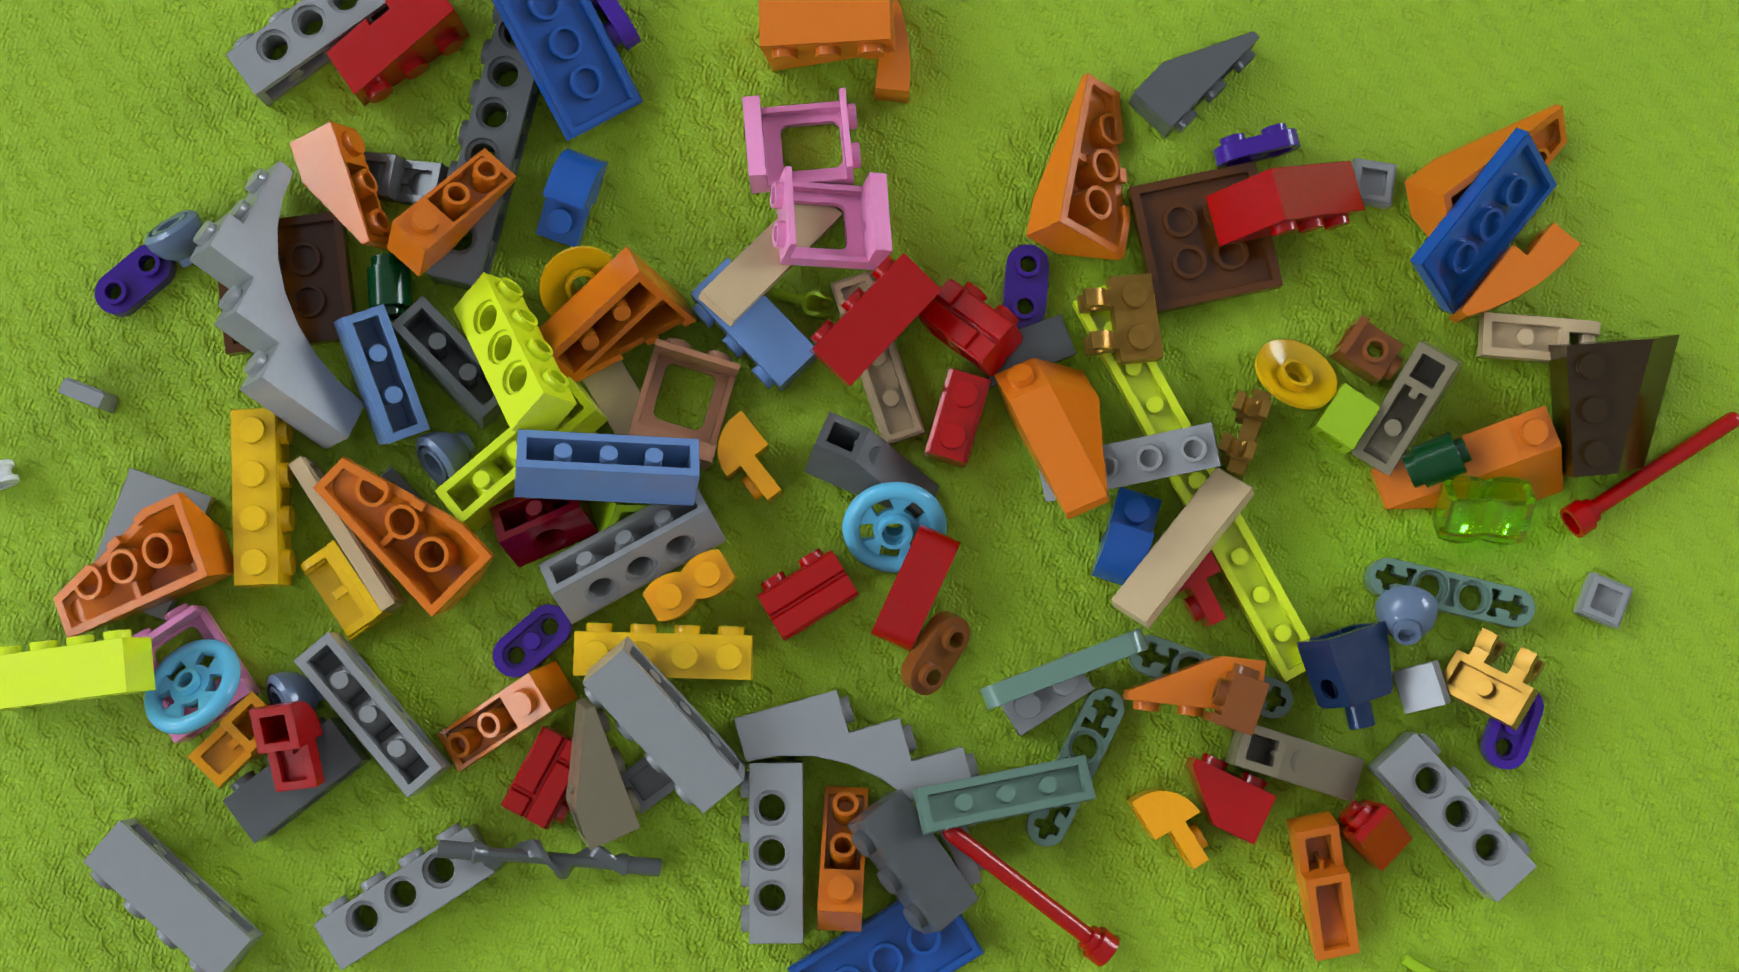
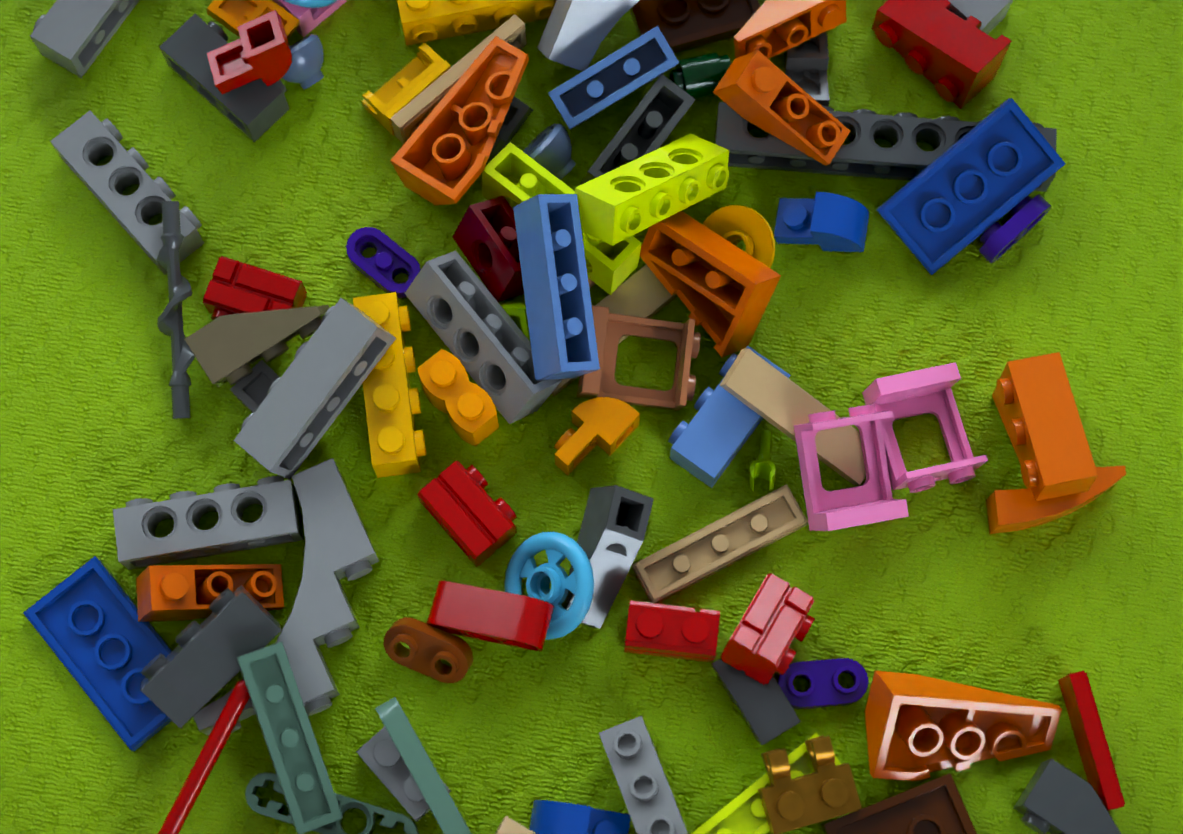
camera: 85 degrees right, 10 degrees down
(373, 713) = (292, 129): light grey brick -> none
(507, 715) = (310, 251): orange slope -> none
(873, 318) = (755, 523): red wedge -> none
(1061, 428) = (680, 734): orange wedge -> none
(1118, 53) = (1091, 739): none -> red tile

